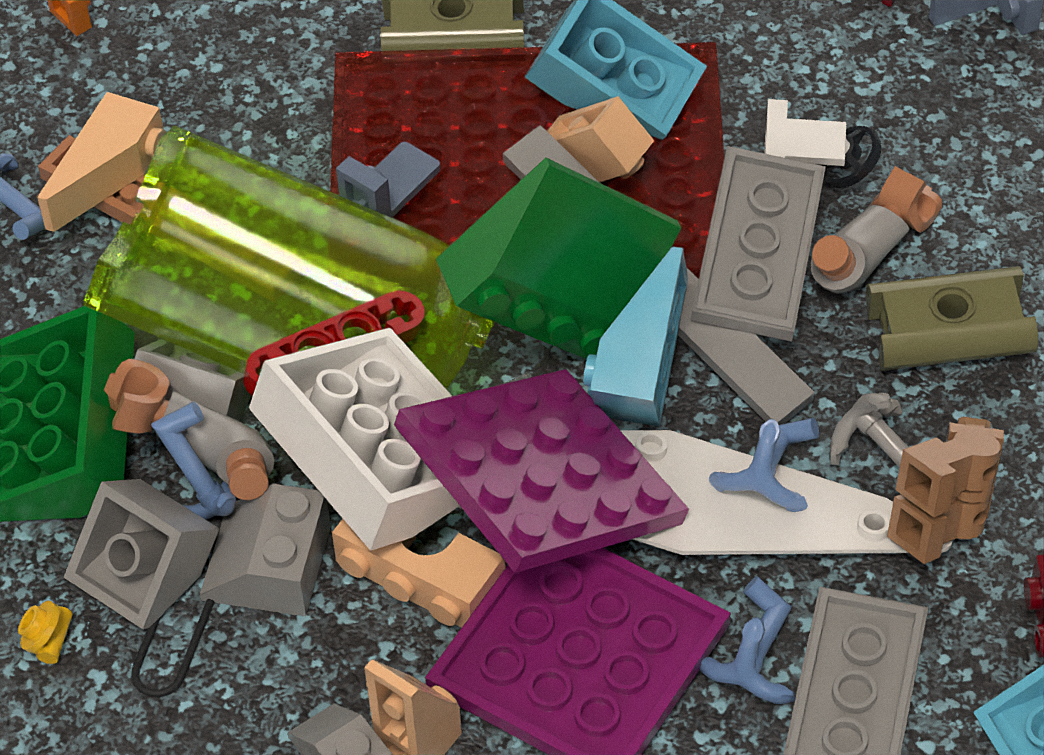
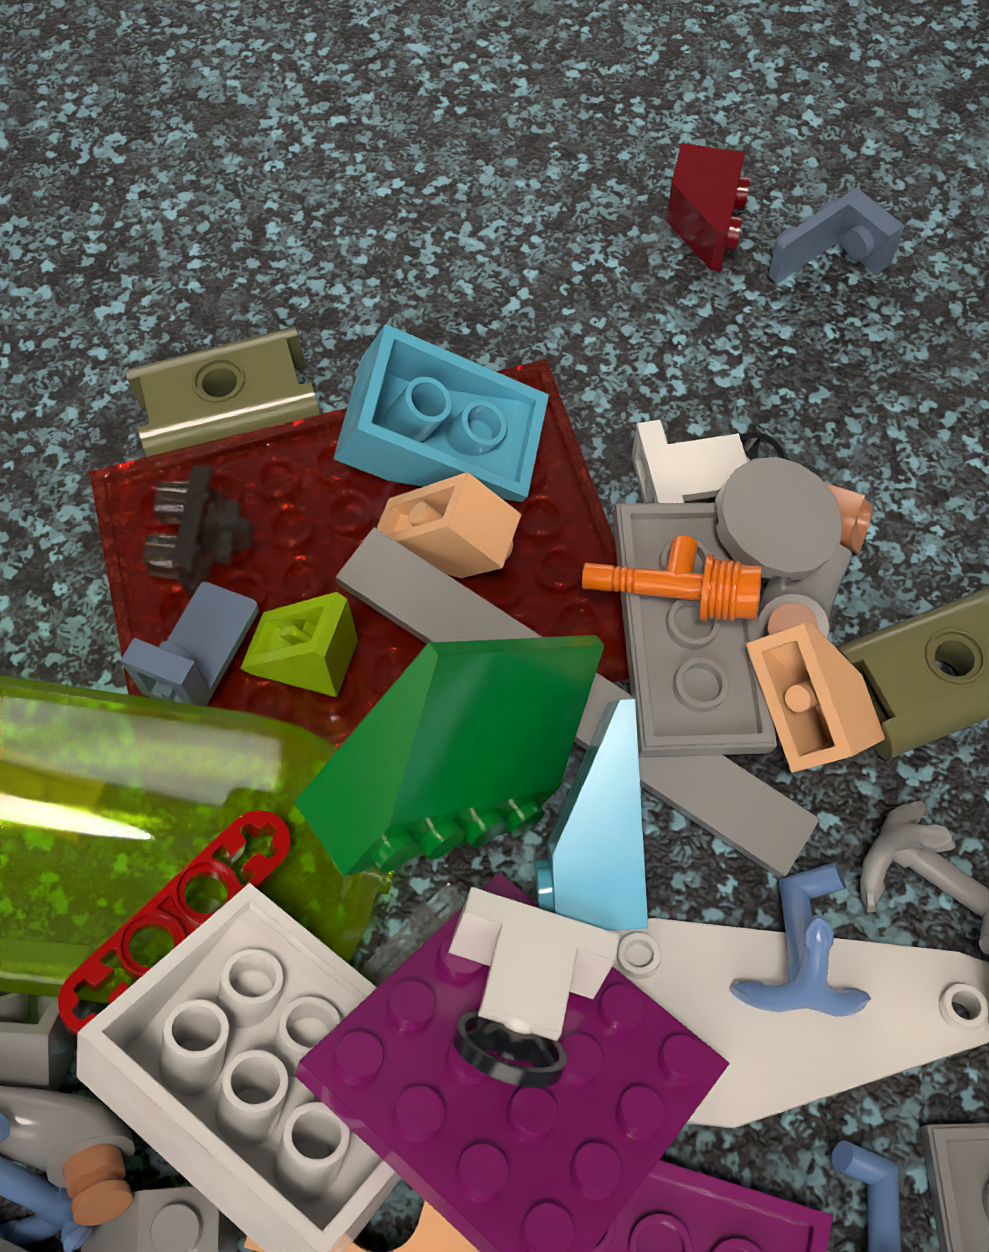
camera: 15 degrees left, 10 degrees up
(414, 106) = (206, 530): none -> clear smoke hips
(466, 193) = (305, 644): none -> lime slope
(564, 395) = (532, 969): none -> white piece
(778, 210) = (724, 589): none -> orange piece
(833, 306) = (814, 697): none -> light nougat slope
(847, 181) = (778, 518): none -> light grey tile

